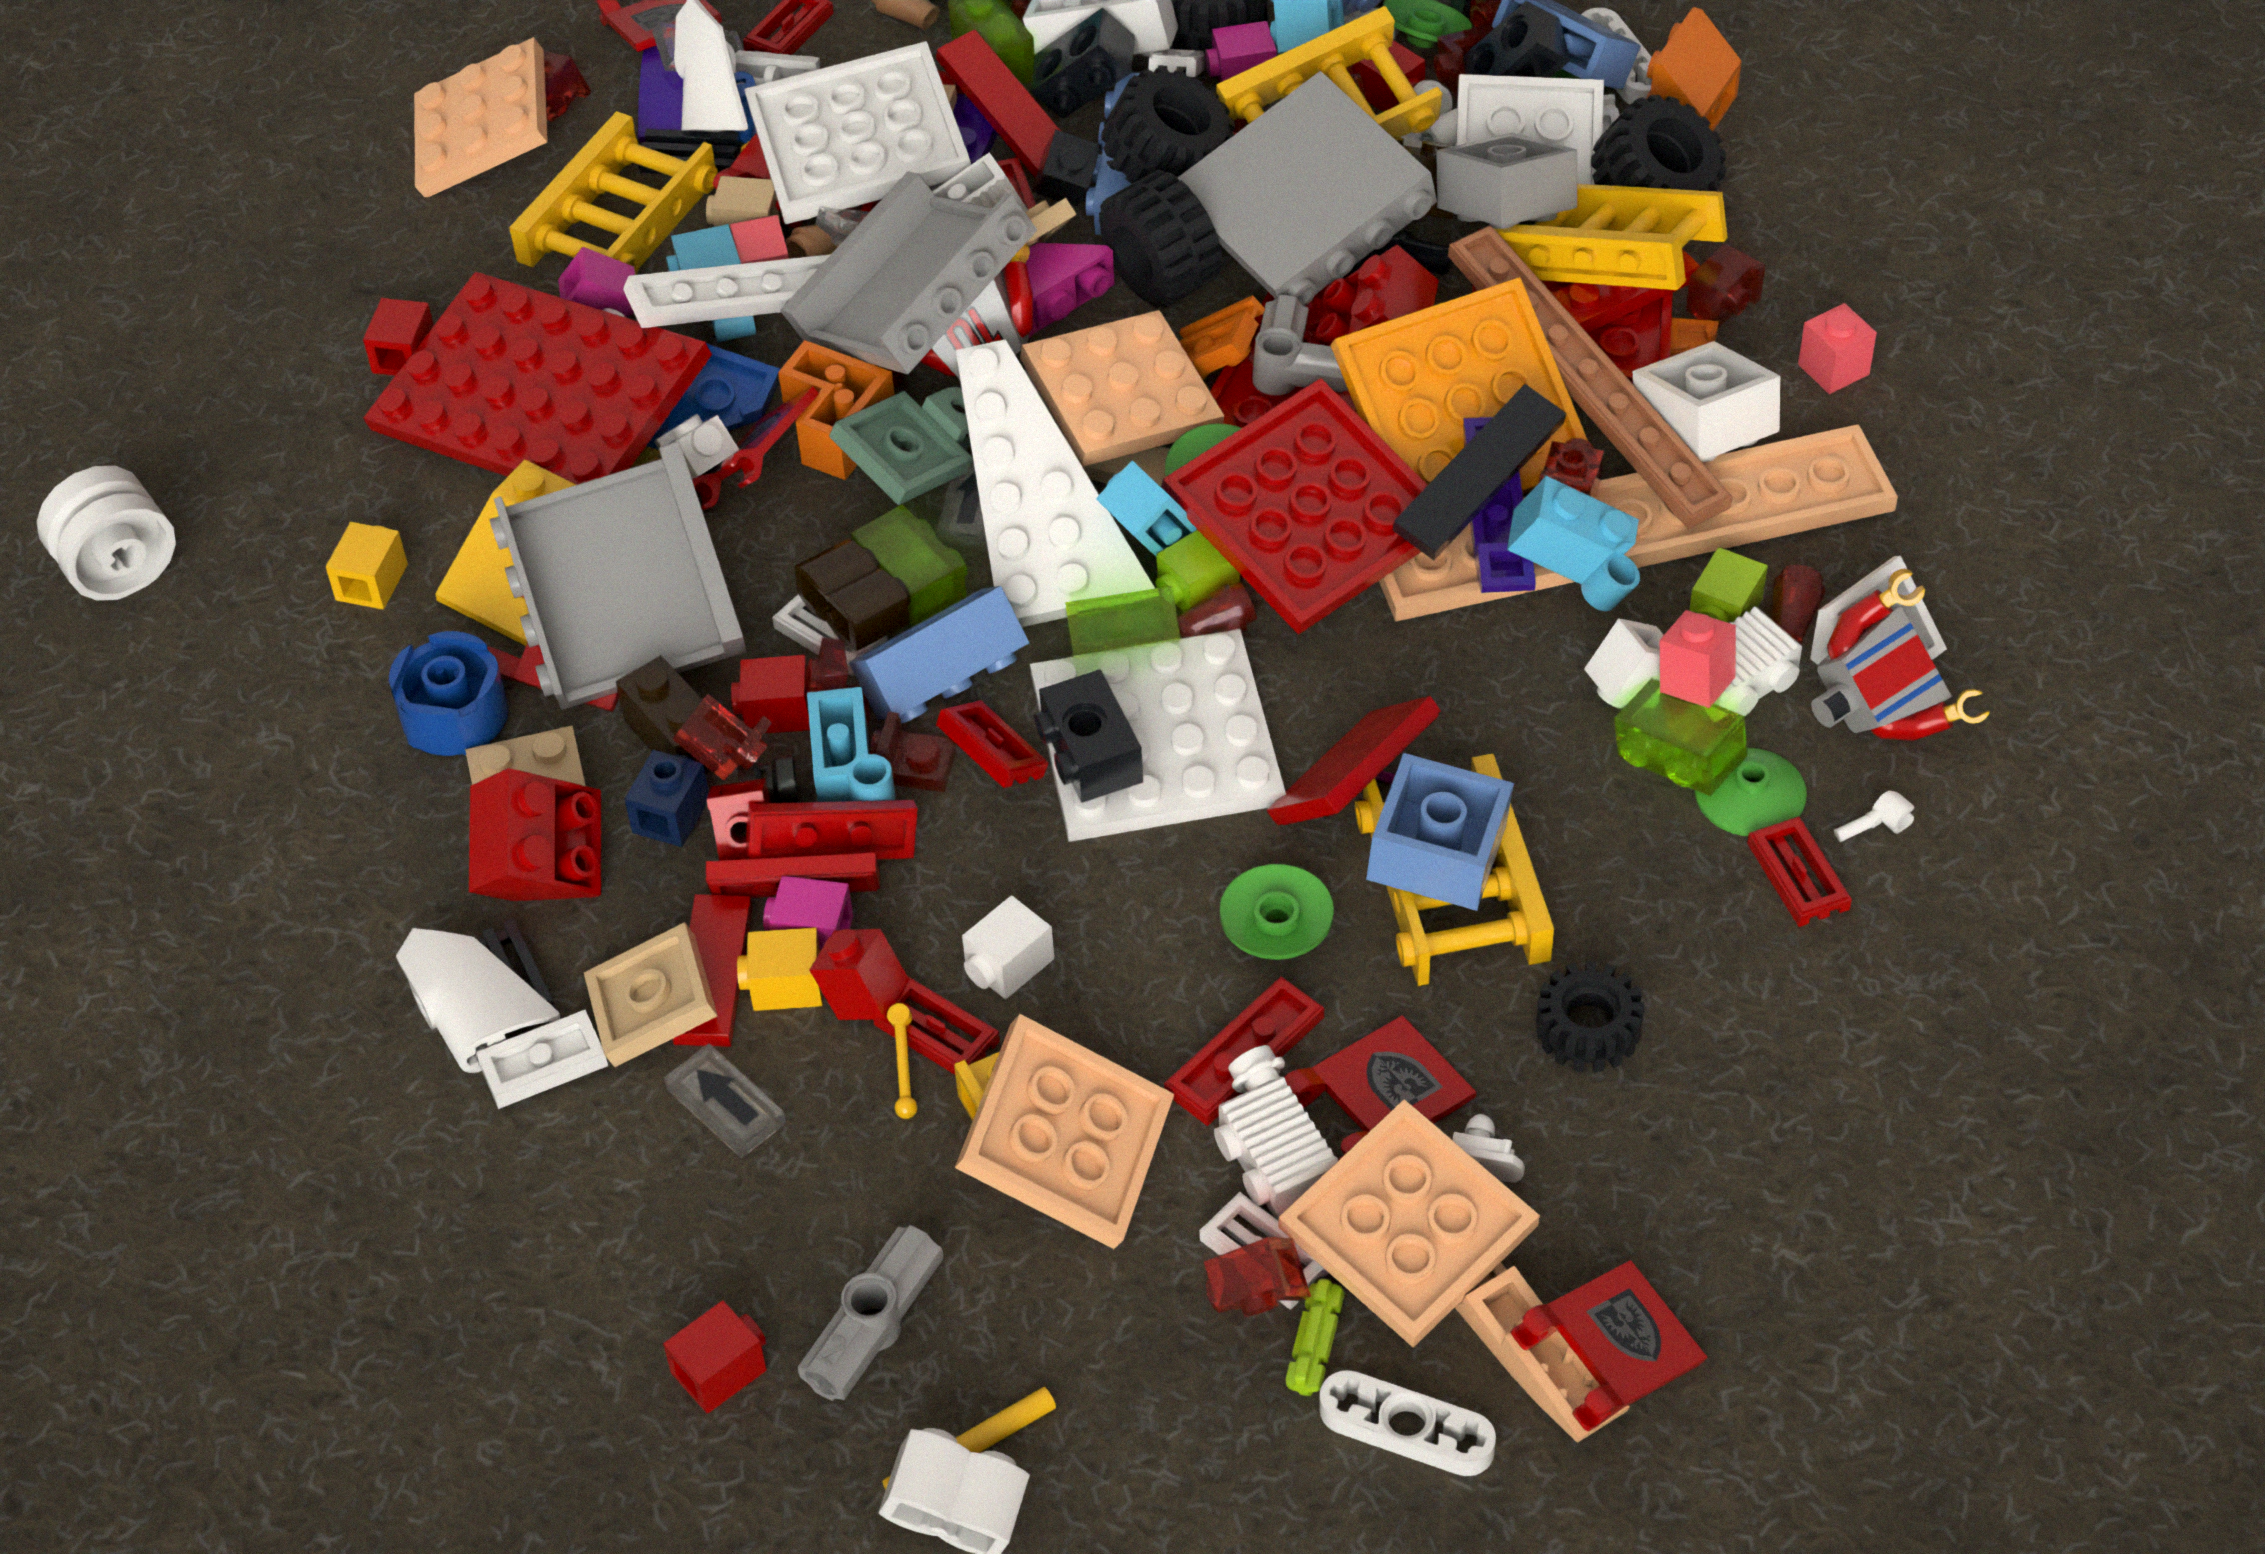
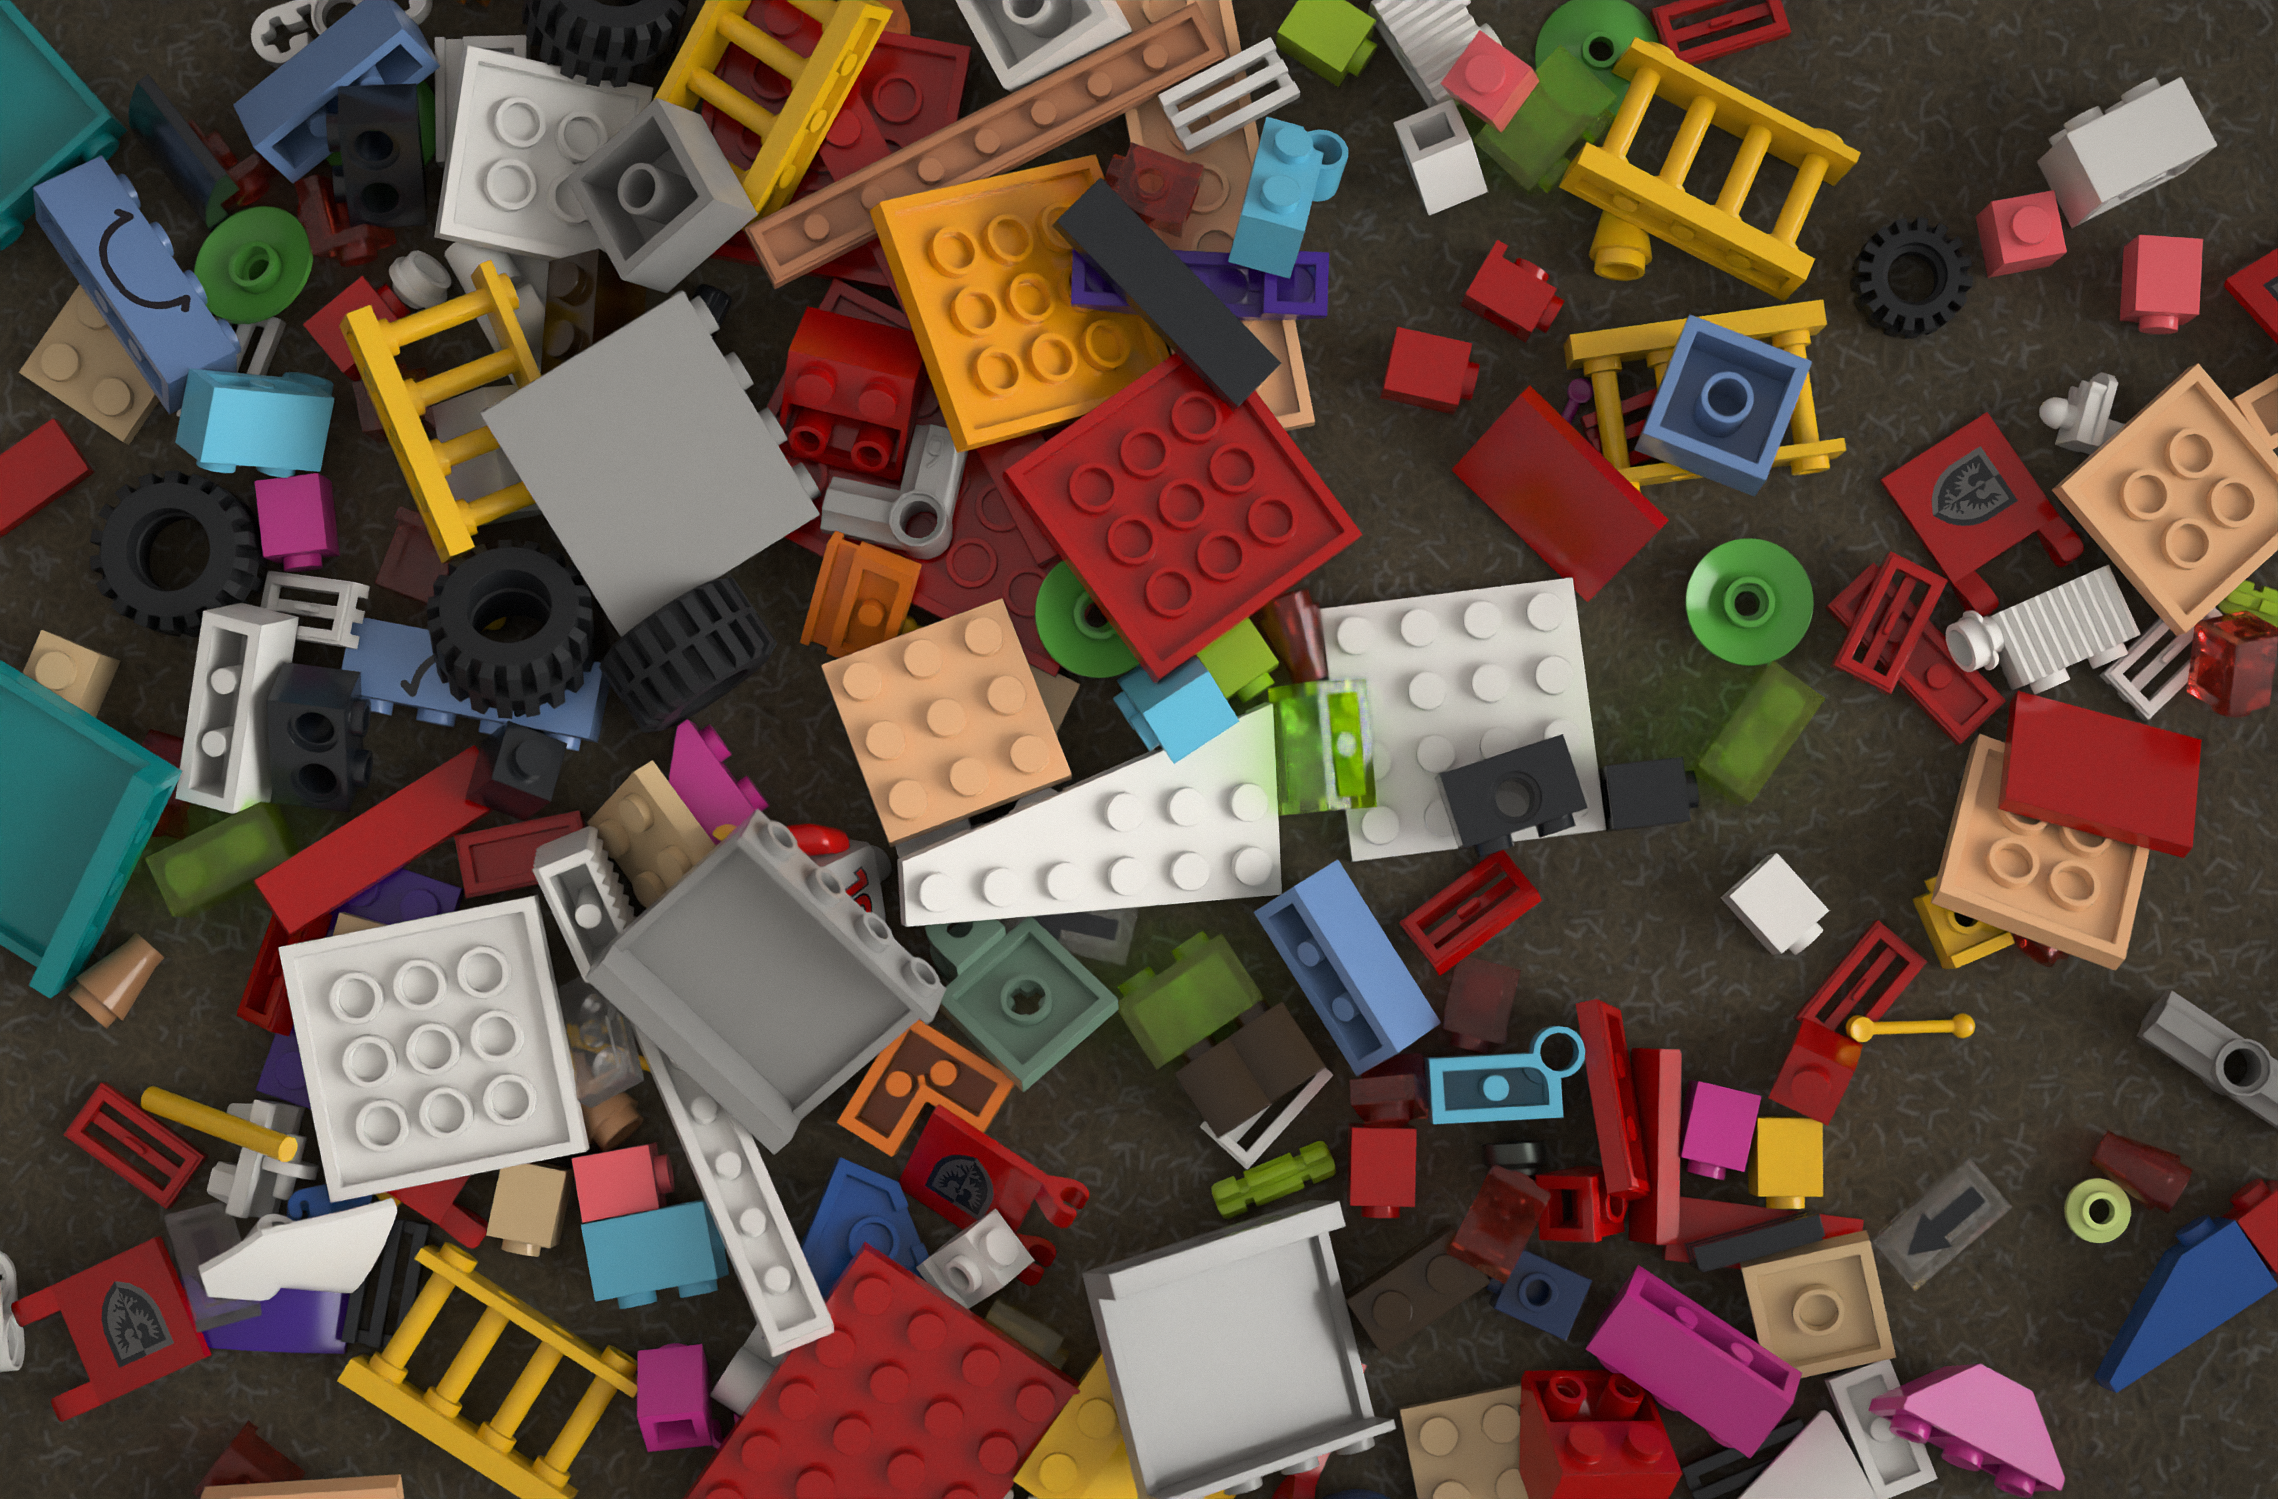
camera: 85 degrees left, 35 degrees up
(542, 1113) = (1979, 1424): none -> slope
(604, 905) = (1694, 1362): none -> dark pink brick
(650, 1280) = (2187, 1296): none -> blue slope
(708, 936) = (1755, 1240): none -> black tile
(736, 1231) = (2078, 1205): none -> yellowish green plate
(759, 627) = (1273, 1179): none -> lime axle
(772, 1248) = (2142, 1170): none -> clear red cone
(801, 43) = (219, 1124): none -> yellow bar
(1099, 849) = (1648, 794): none -> black brick
(1142, 1180) = (2100, 774): none -> red tile
(1158, 920) = (1756, 733): none -> clear neon green brick
(1263, 1019) = (1864, 671): none -> red tile
(1452, 676) = (1429, 371): none -> red brick
(1527, 728) = (1512, 295): none -> red brick
(1590, 806) = (1619, 249): none -> yellow cone
(1605, 846) = (1688, 223): none -> yellow fence
(1618, 1208) = (2161, 282): none -> coral brick
(1644, 1089) = (2021, 233): none -> coral brick
(1666, 524) = (1276, 71): none -> white tile
(1733, 1148) = (2126, 151): none -> white brick

